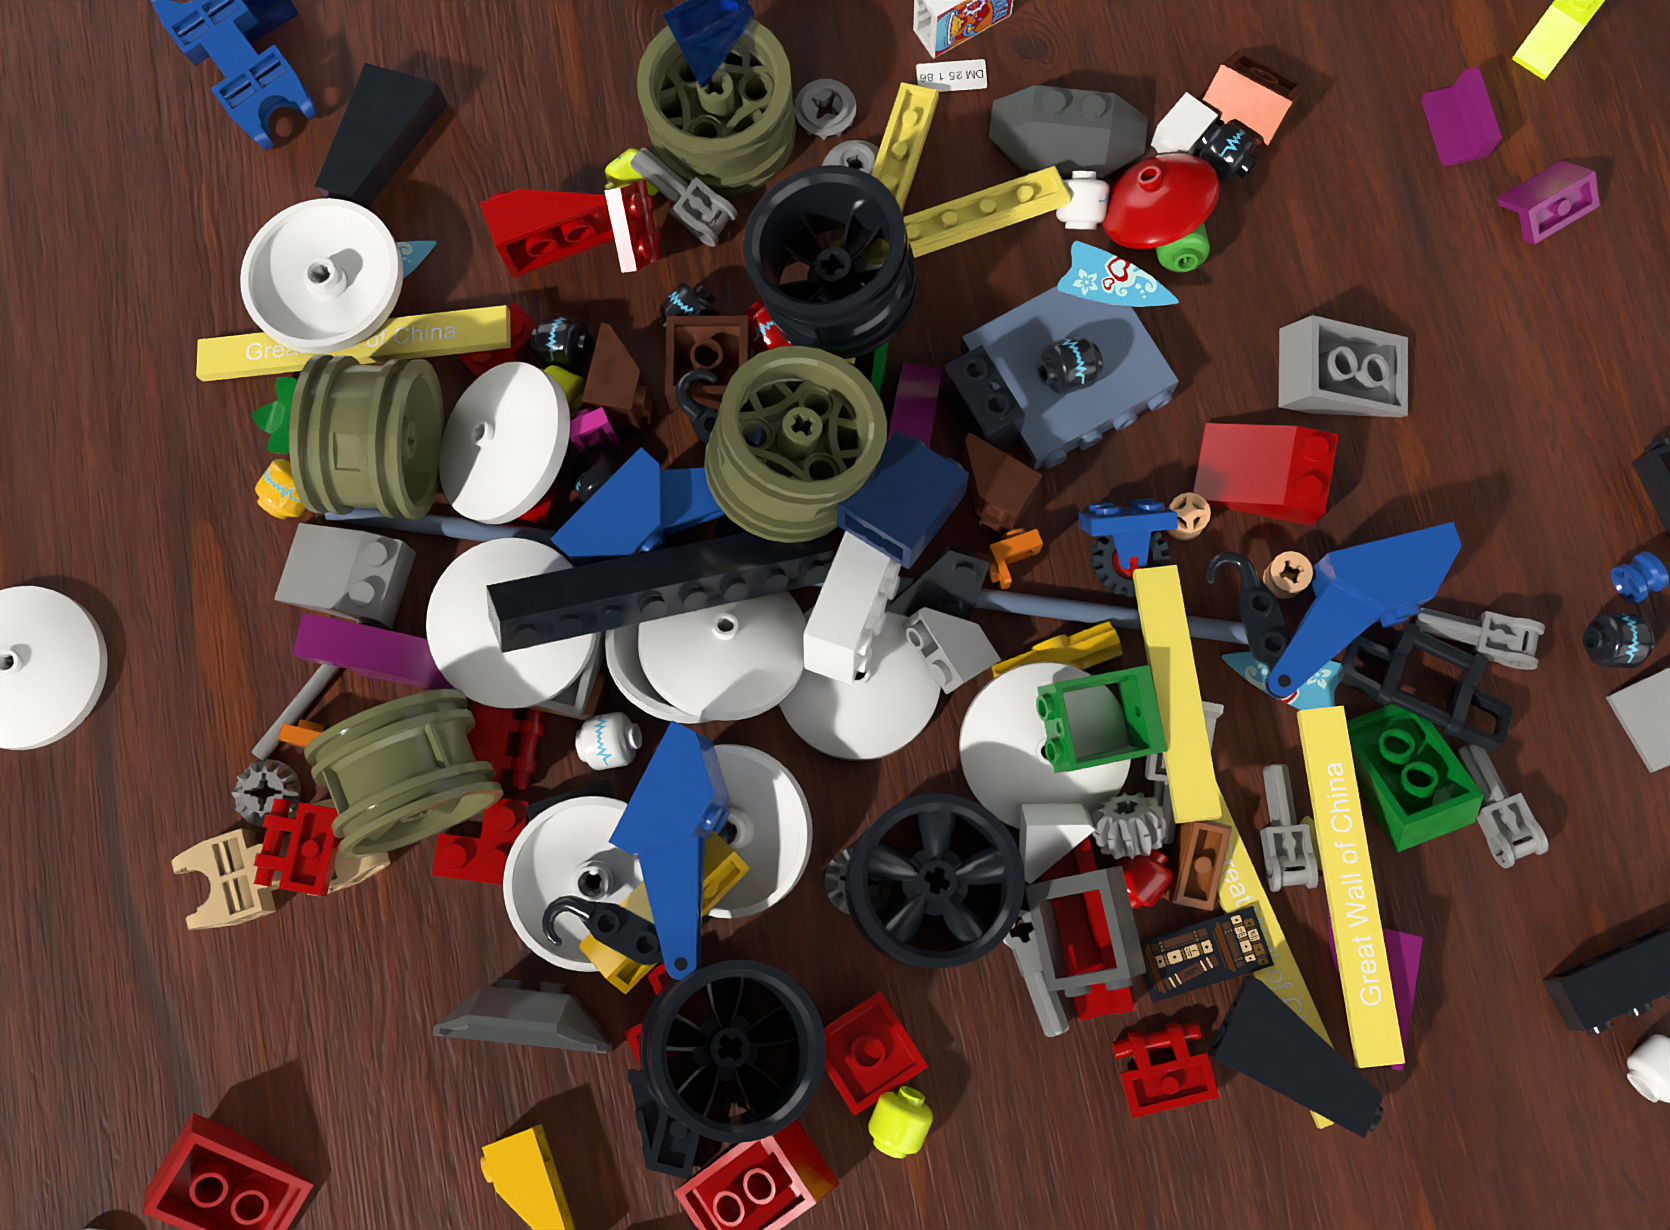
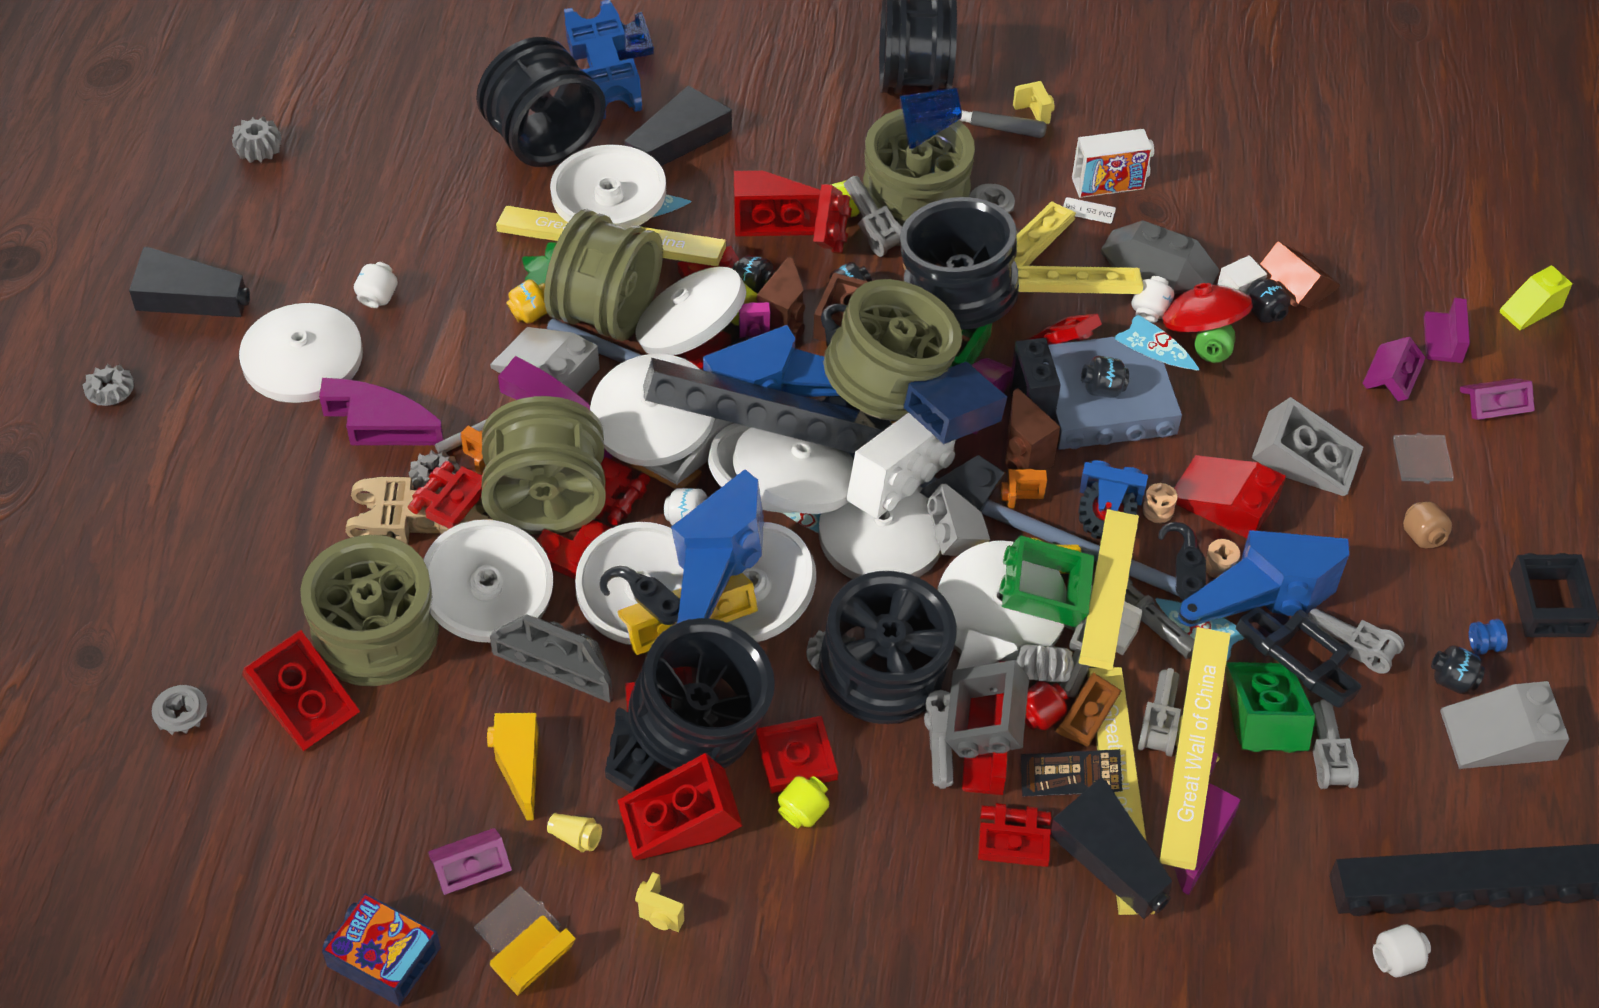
camera: 10 degrees right, 25 degrees down
(76, 532) = (375, 284): none -> white head
(157, 737) = (378, 414): none -> magenta slope
(175, 172) = (522, 81): none -> black wheel
(264, 1061) = (370, 609): none -> olive wheel
(353, 958) = (486, 578): none -> white dish
(987, 295) = (1069, 328): none -> red wing
(1215, 679) = (1160, 622): none -> dark grey pin
(1411, 199) = (1396, 366): none -> magenta panel
(1482, 325) = (1423, 458): none -> clear piece
(1522, 435) = (1427, 525): none -> medium nougat head

